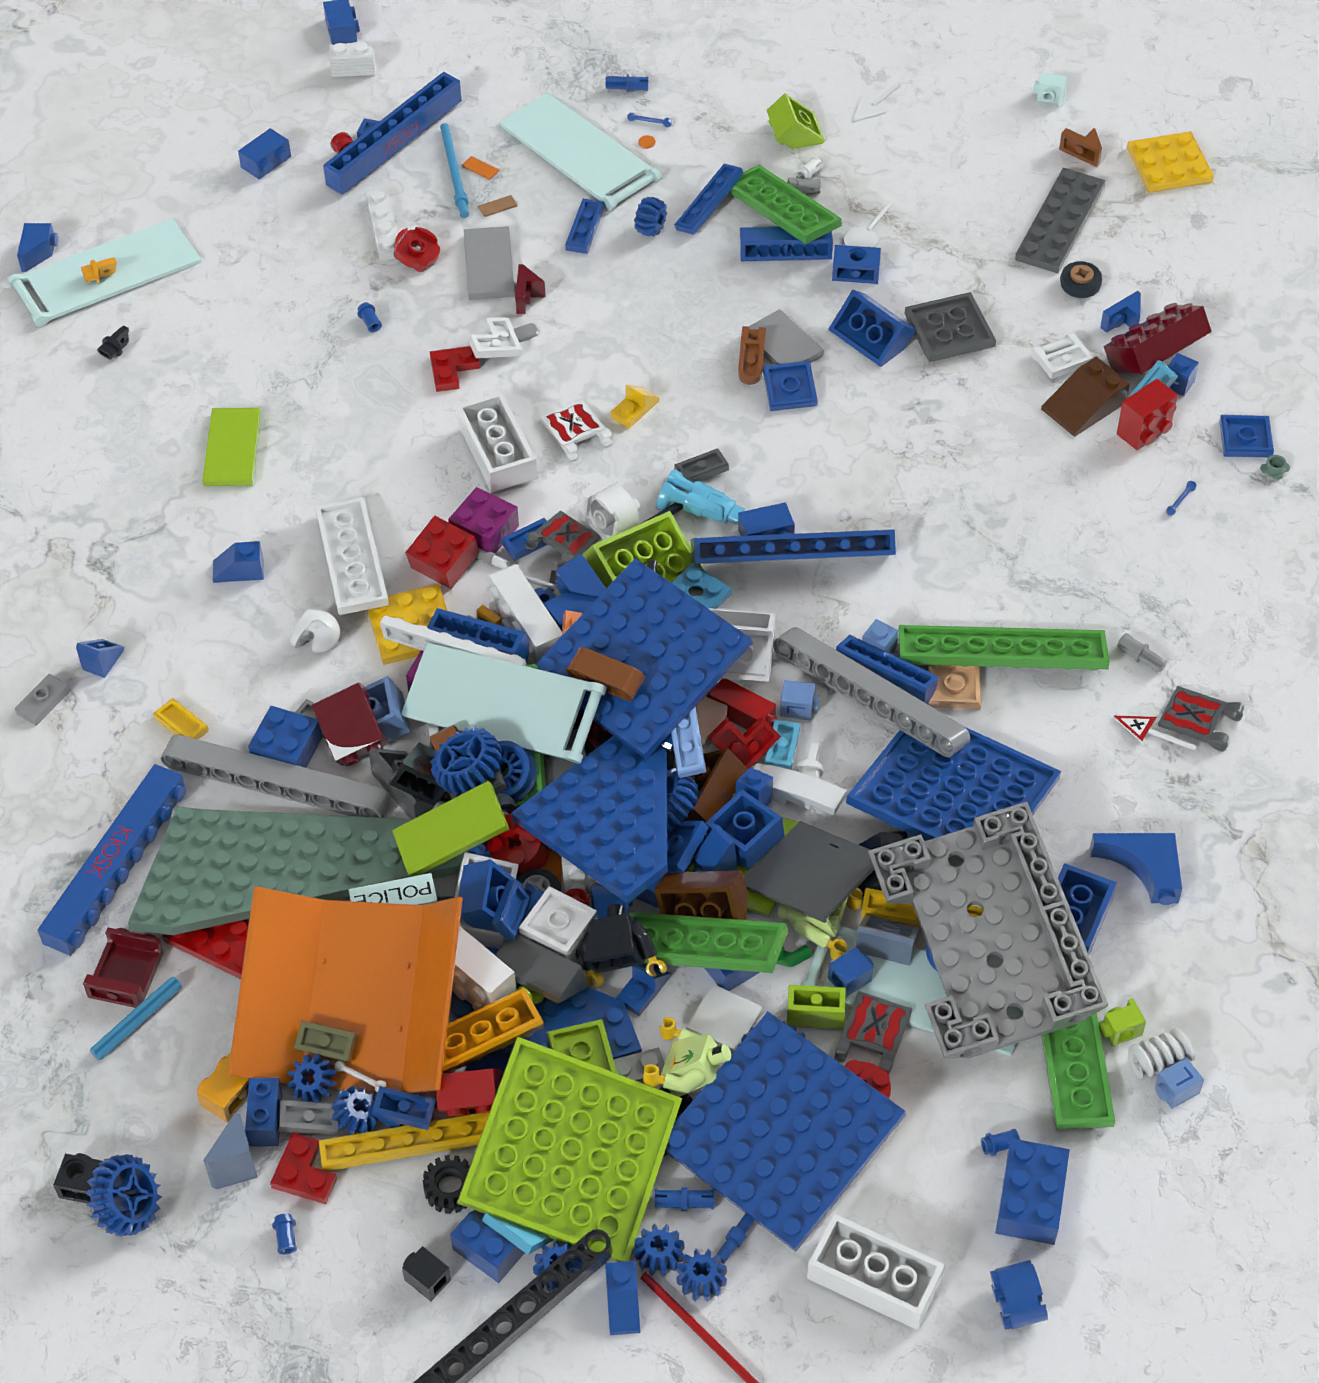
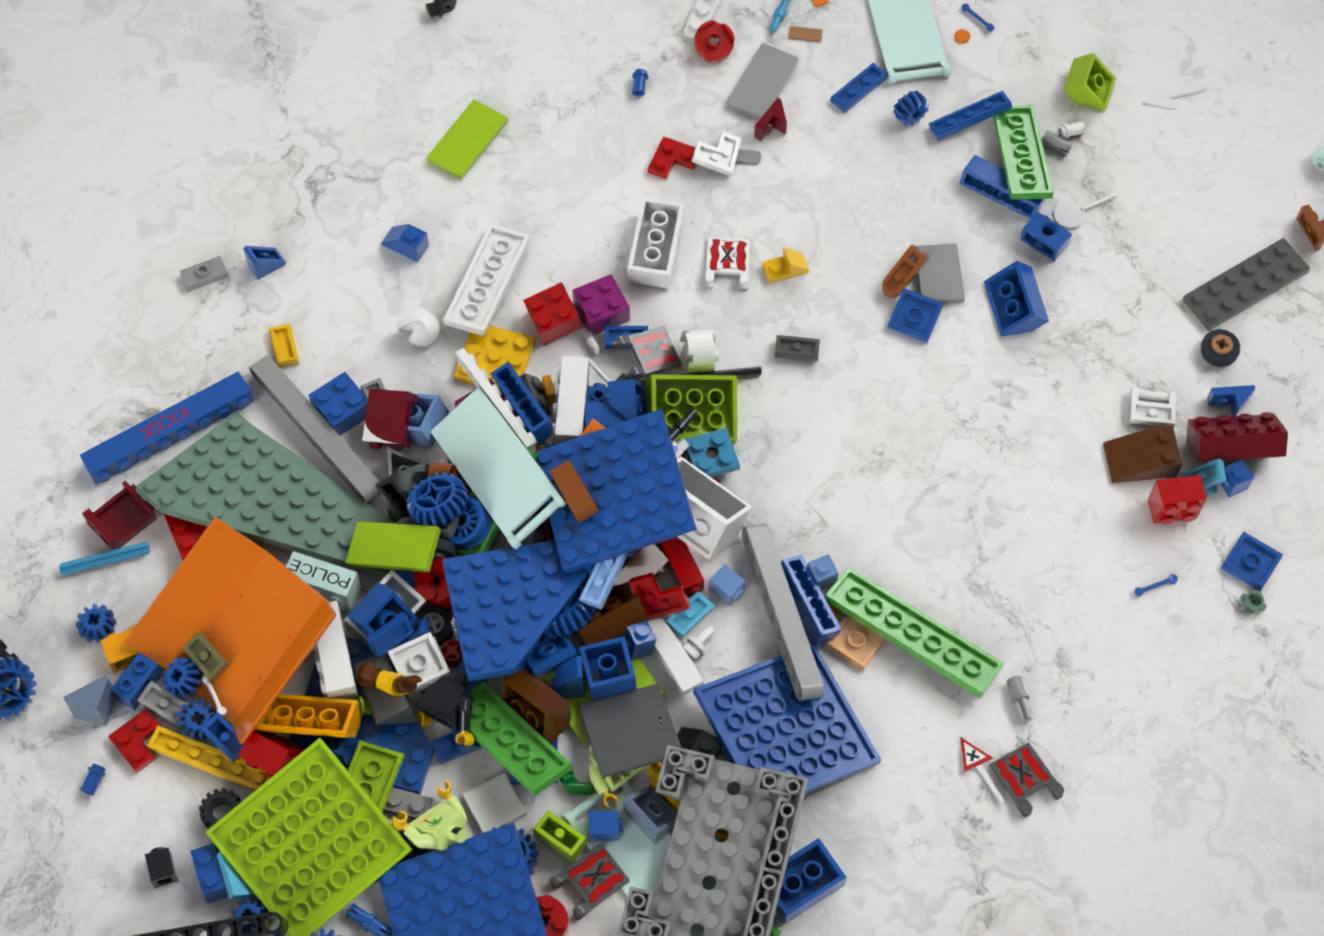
camera: 30 degrees right, 10 degrees up
(175, 1082) = (102, 616): none -> blue gear
(545, 951) = (389, 682): none -> reddish brown piece
(700, 500) = (774, 378): medium azure piece -> none
(766, 521) = (808, 426): blue brick -> none
(793, 546) = (811, 457): blue brick -> none
(950, 327) = (1080, 332): dark grey plate -> none
(1149, 856) = (896, 871): blue arch -> none

